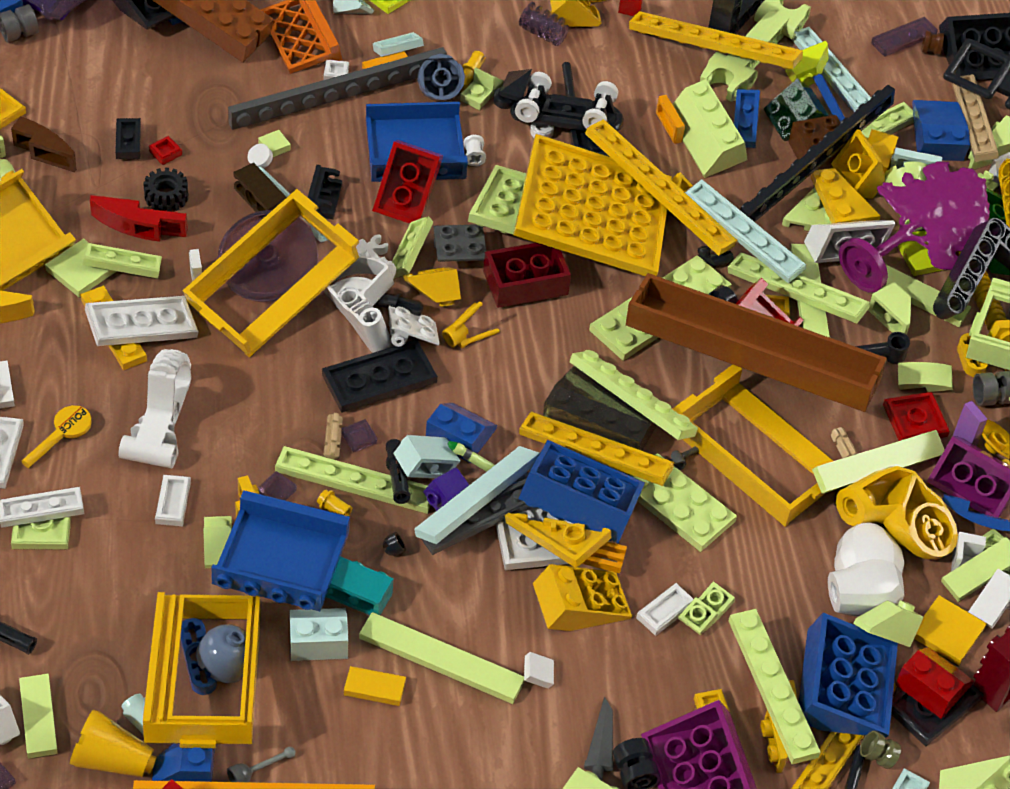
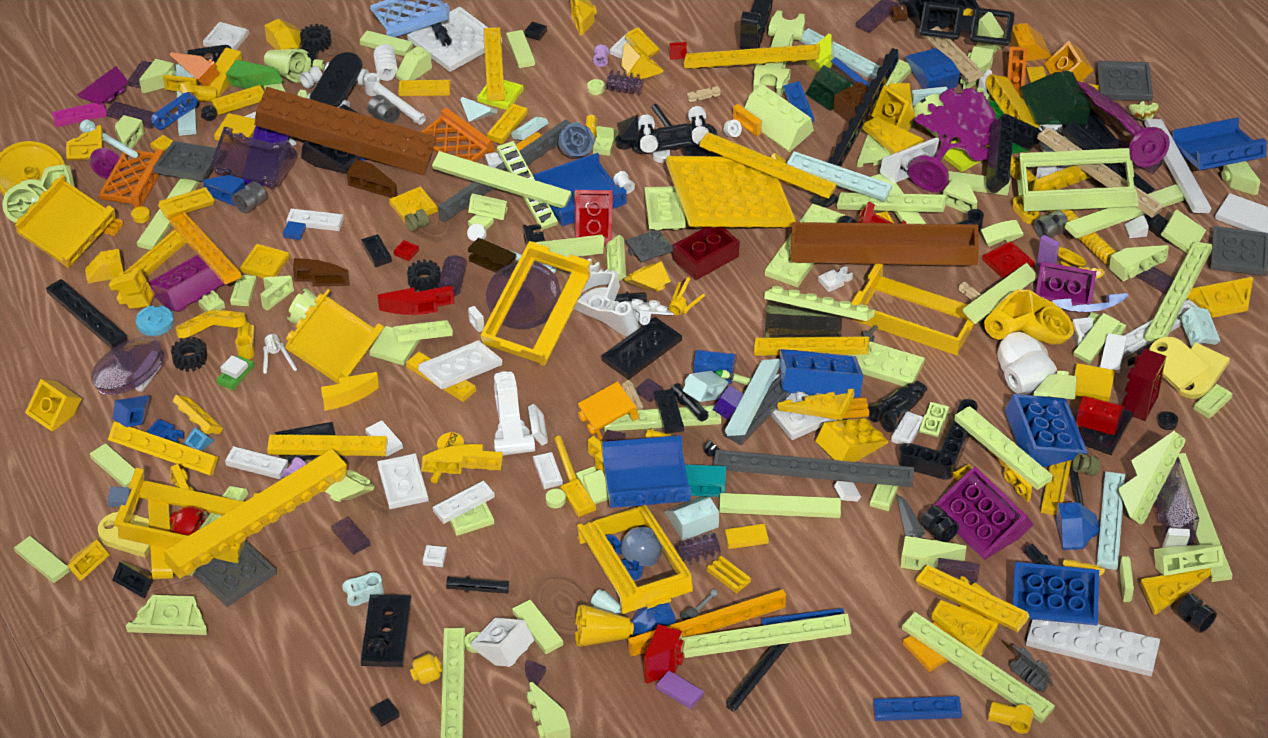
camera: 15 degrees left, 5 degrees down
(48, 81) = (294, 230): none -> blue tile
(60, 443) = (454, 458): none -> yellow slope
(81, 76) = (316, 219): none -> white tile
(160, 542) = (555, 498): none -> yellowish green tile
(170, 44) = (371, 179): none -> reddish brown slope
(190, 552) = (578, 498): none -> yellow tile
(191, 434) = (538, 424): none -> white tile
(199, 199) = (453, 273): none -> clear purple piece
(203, 115) = (416, 220): none -> olive wheel
(203, 493) = (565, 458): none -> yellow bar
(206, 95) = (411, 202): none -> yellow tile
(286, 442) = (606, 408): none -> light orange panel
(289, 127) = (488, 206): none -> yellowish green panel
(296, 682) = (698, 547): none -> clear purple piece
(314, 713) = (730, 572): none -> yellow tile
(321, 98) = (501, 180): none -> yellowish green tile
(351, 116) = (516, 165): none -> tile
(359, 212) = (576, 246): none -> yellowish green tile
(364, 474) = (668, 411): none -> black tile
(374, 30) = (507, 123): none -> yellow plate
(508, 18) = (596, 87): none -> yellowish green tile
(512, 622) = (815, 468): none -> dark grey plate
(590, 689) = (883, 496): none -> yellowish green tile
(635, 69) = (703, 94): none -> tan axle
(646, 124) = (732, 128): none -> white tile
(672, 366) = (833, 280): none -> white plate
(682, 566) = (896, 404): none -> black piece
(691, 669) = (934, 462): none -> black beam

